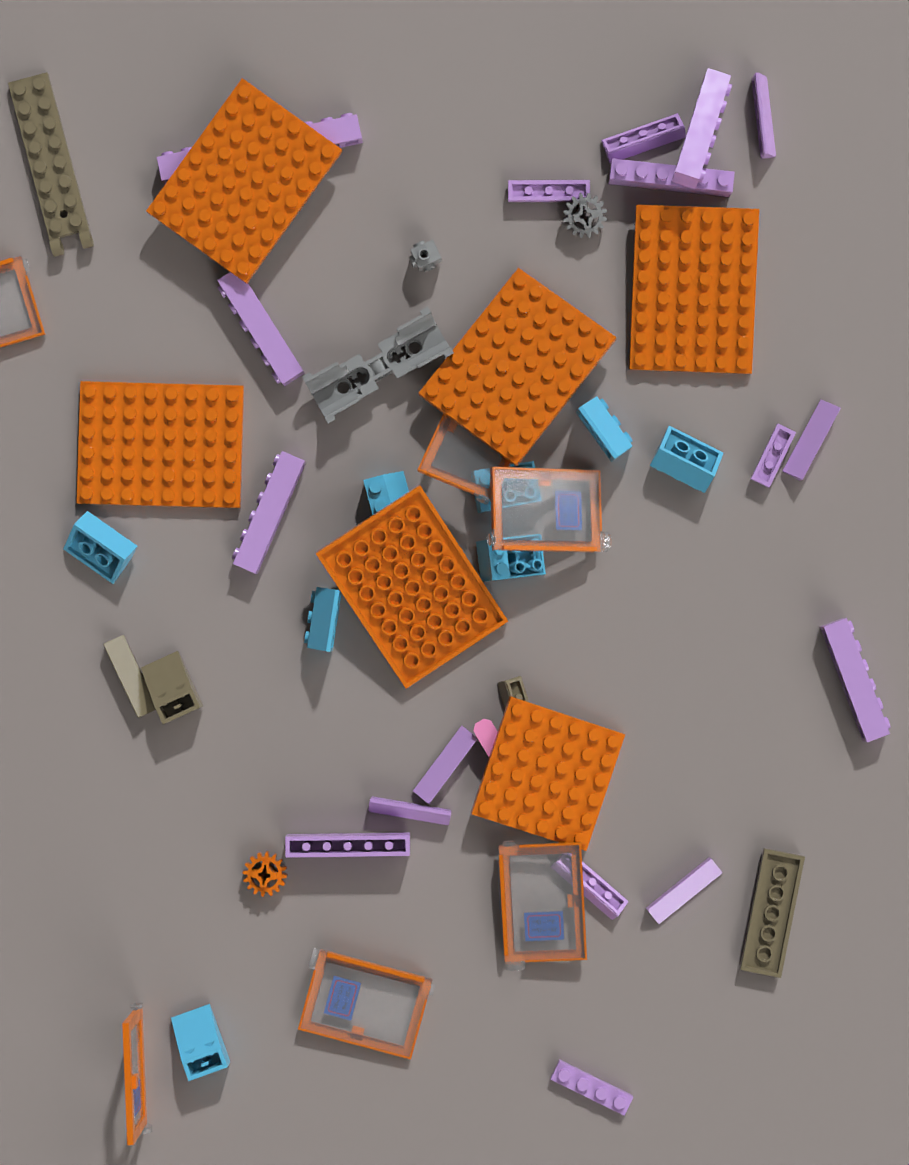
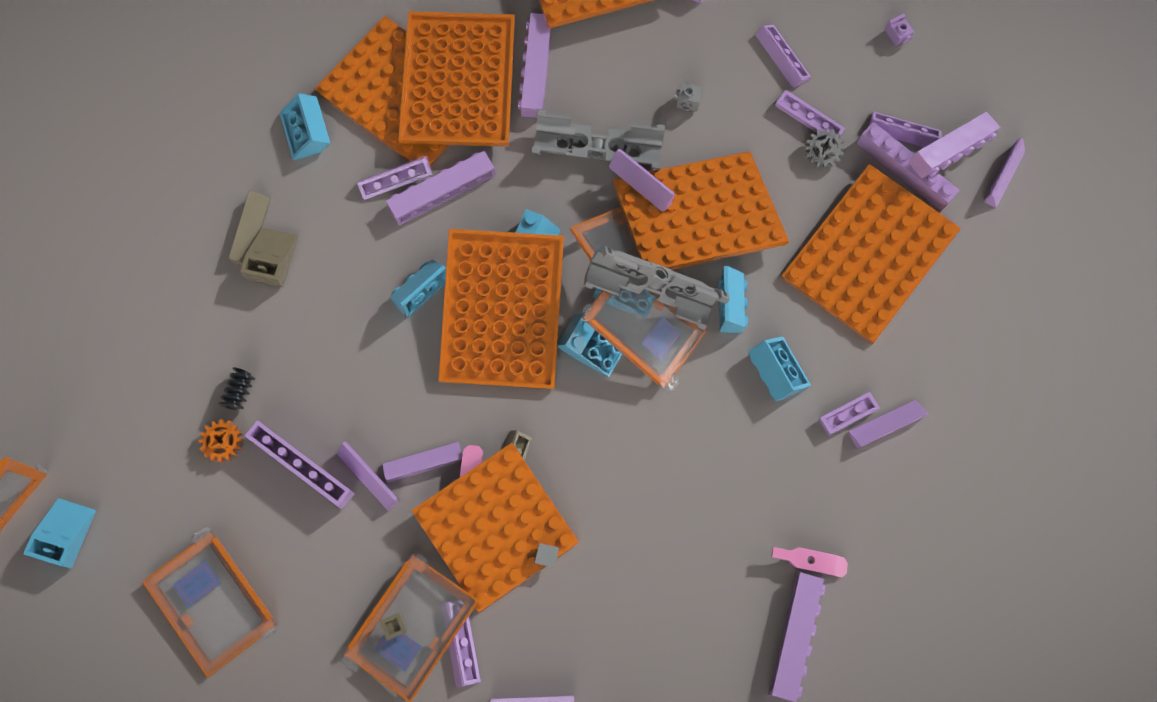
camera: 30 degrees right, 15 degrees down
(202, 397) = (457, 79): none -> orange plate
(220, 533) = (394, 177): none -> lavender slope
(243, 822) = (236, 389): none -> black piece
(447, 379) = (642, 180): none -> lavender slope
(479, 142) = (782, 55): none -> lavender slope
(529, 913) = (393, 626): none -> dark tan plate
(567, 457) = (616, 270): none -> light grey piece
(573, 42) = (899, 30): none -> lavender brick
(608, 766) = (546, 555): none -> light grey tile
(835, 603) = (821, 561): none -> bright pink piece

